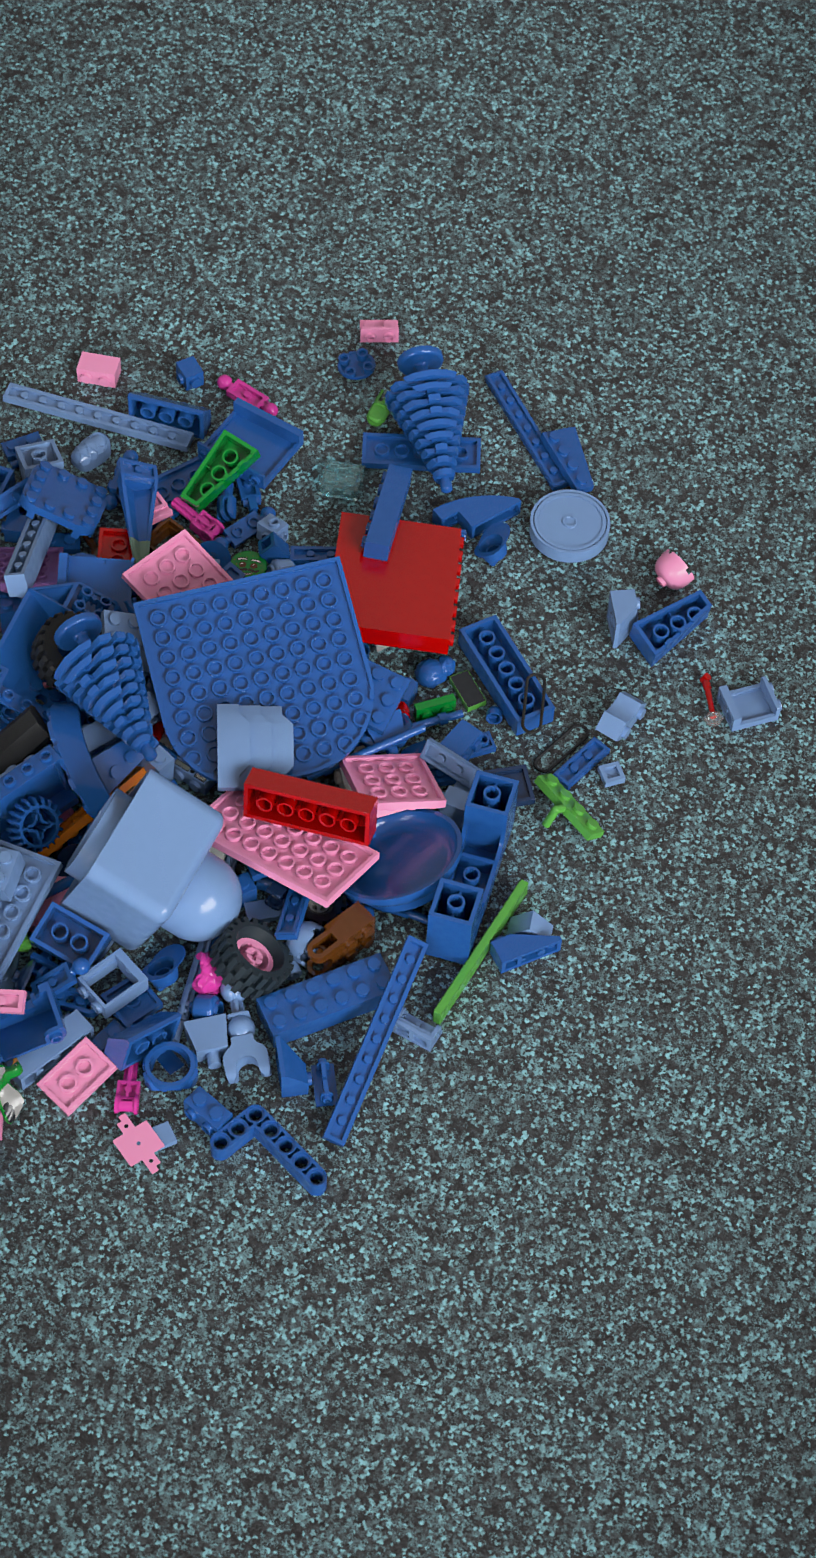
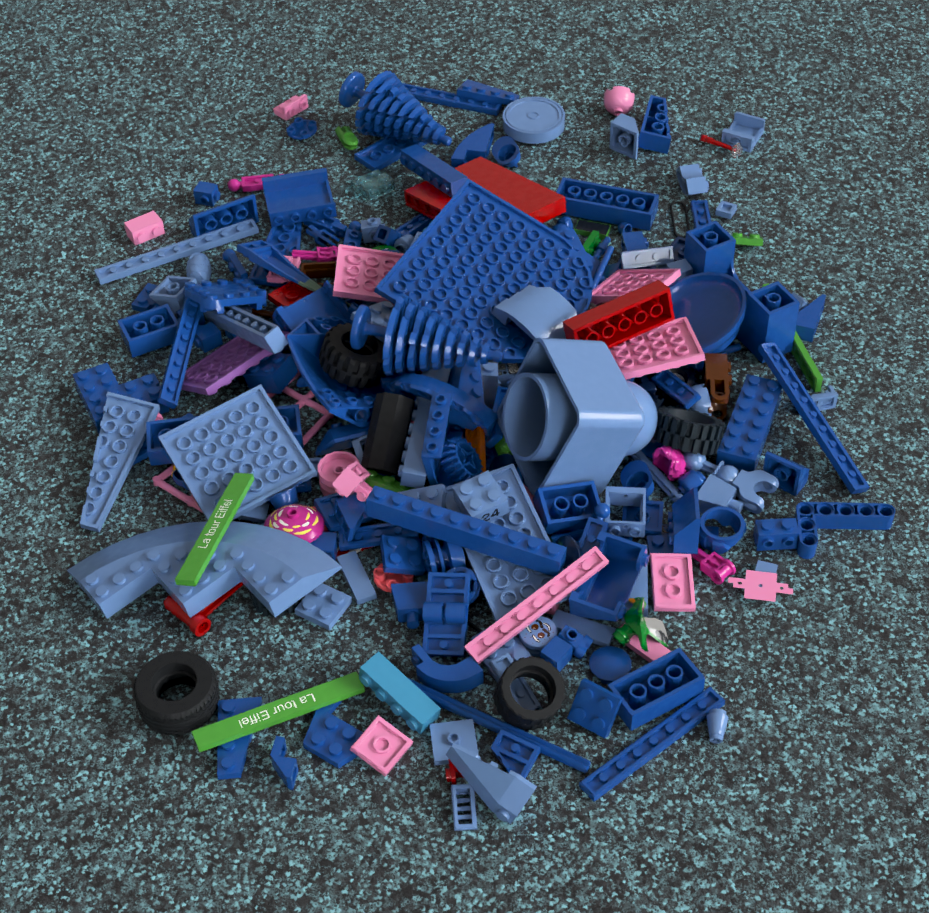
camera: 40 degrees left, 10 degrees down
(218, 470) = (305, 210): green wedge -> none
(324, 1083) = (818, 469): blue hinge -> none
(525, 701) = (658, 214): black piece -> none

